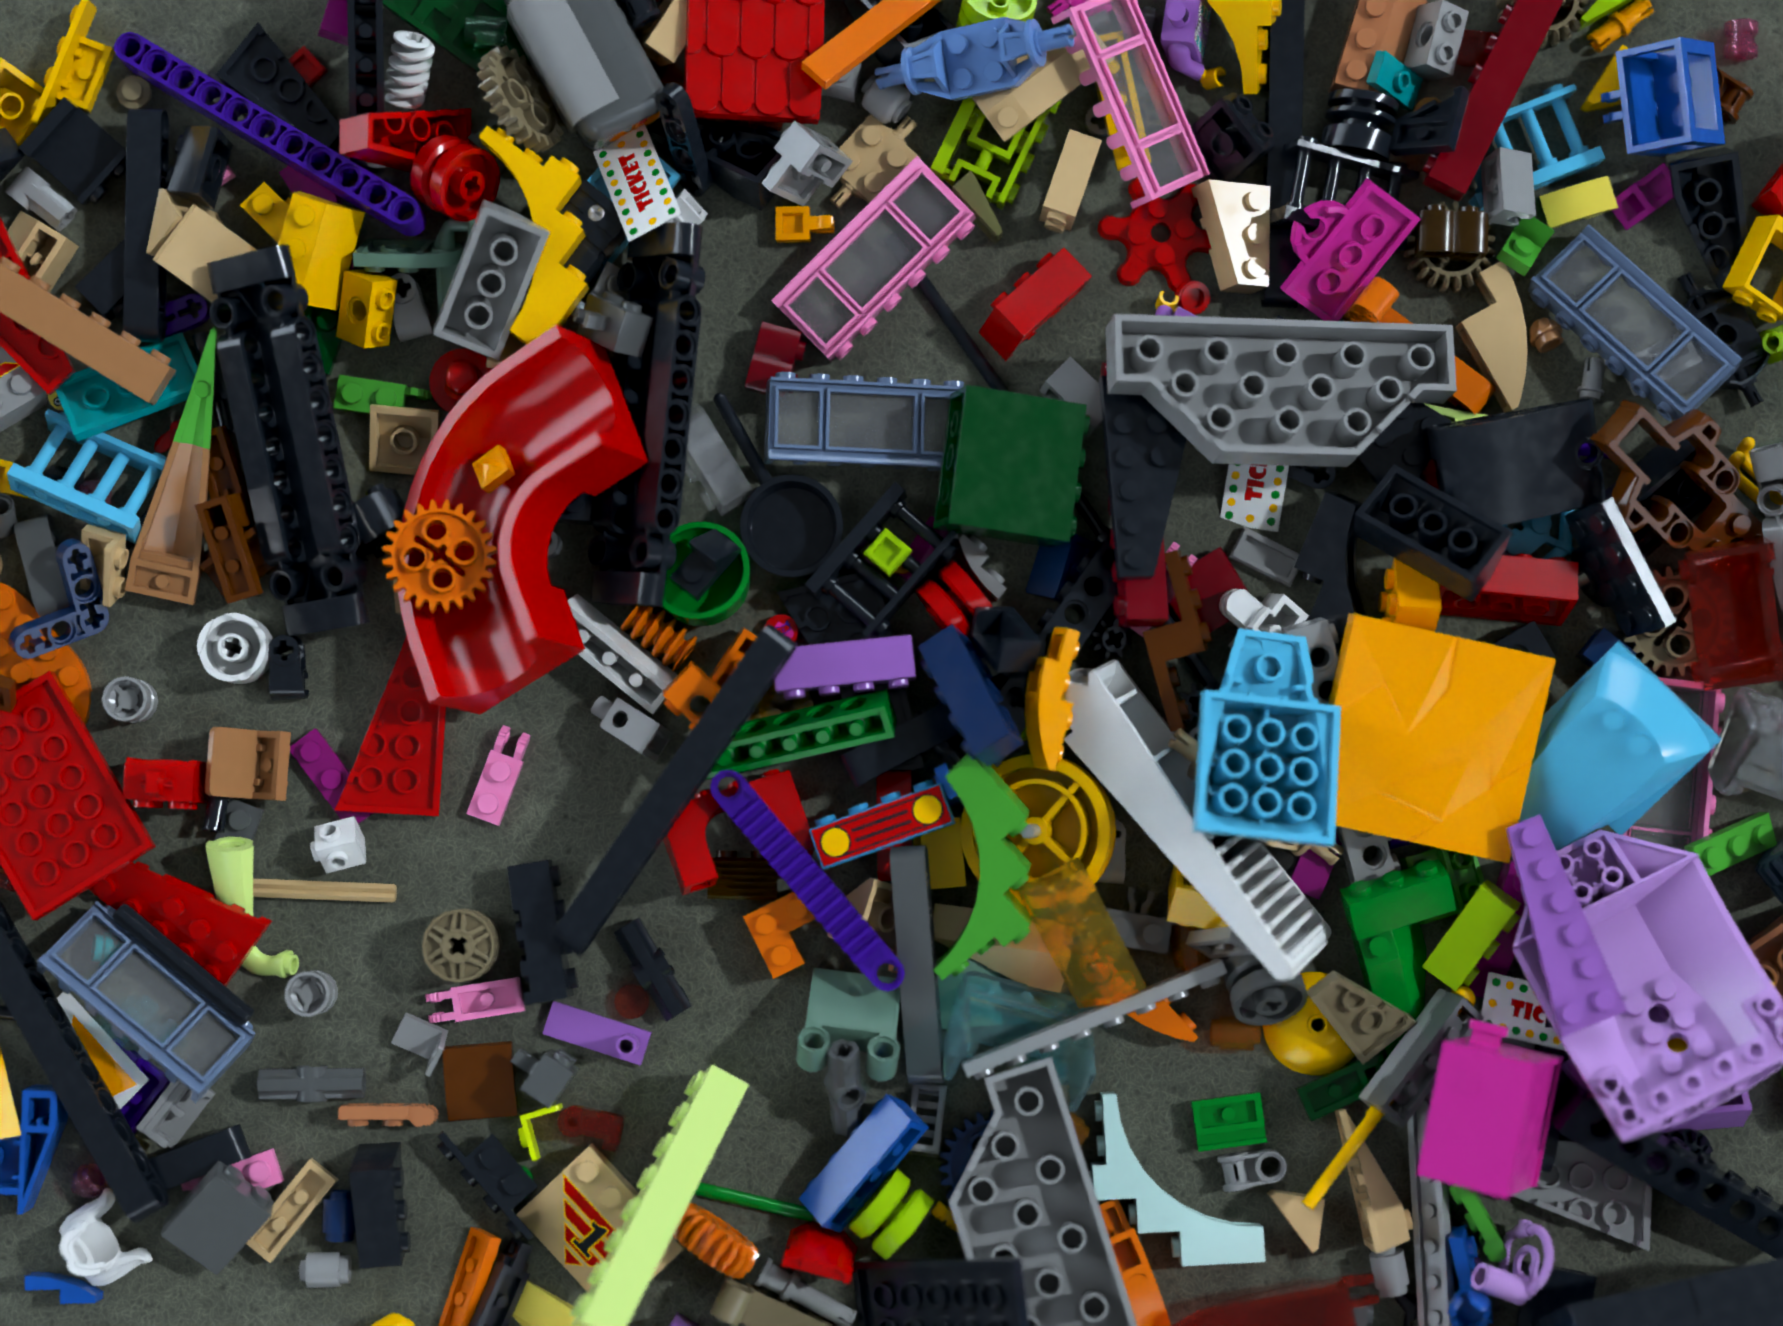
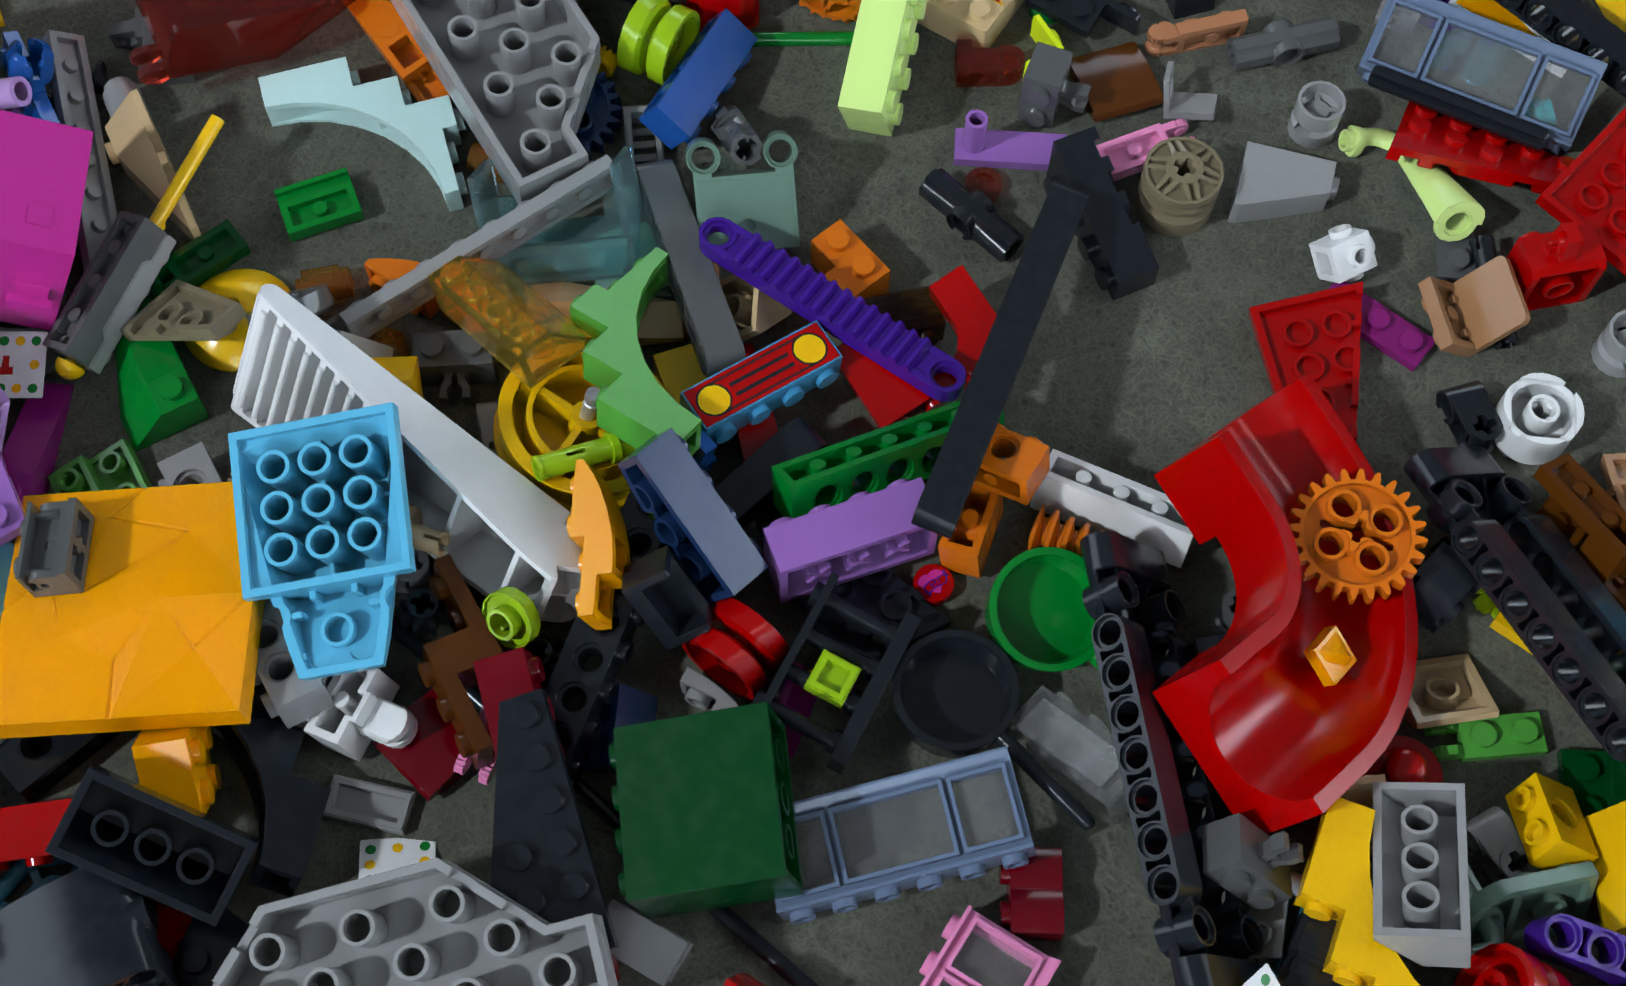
camera: 170 degrees right, 20 degrees down
(324, 890) = (1352, 214): tan axle -> none
(369, 933) = (1280, 184): none -> light grey slope
(498, 779) = (1198, 362): bright pink hinge -> none
(640, 730) = (1074, 431): light grey torso -> none
(704, 565) = (1045, 614): black slope -> none
(1037, 787) = (593, 452): none -> lime pin
(1130, 661) = (511, 617): none -> lime plate
(1248, 1169) = (284, 163): light grey piece -> none
(1302, 1220) = (235, 140): tan slope -> none
(1398, 899) = (154, 440): green brick -> none
(1473, 936) = (63, 426): lime brick -> none
(1486, 796) = (54, 548): none -> dark grey hinge

